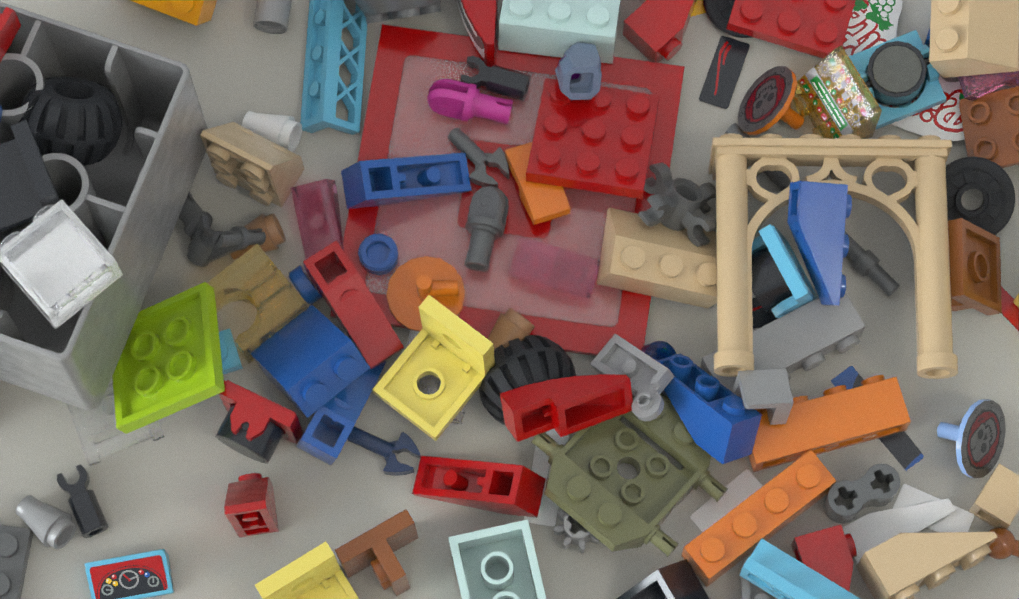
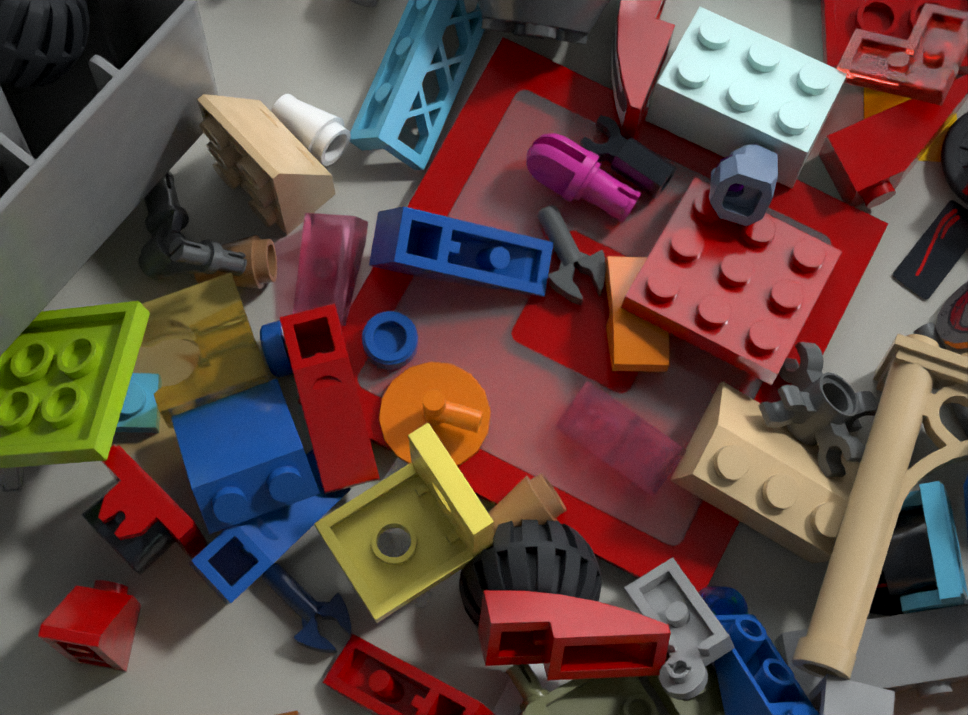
camera: 15 degrees right, 0 degrees up
(485, 223) = (546, 349): dark grey arm -> none

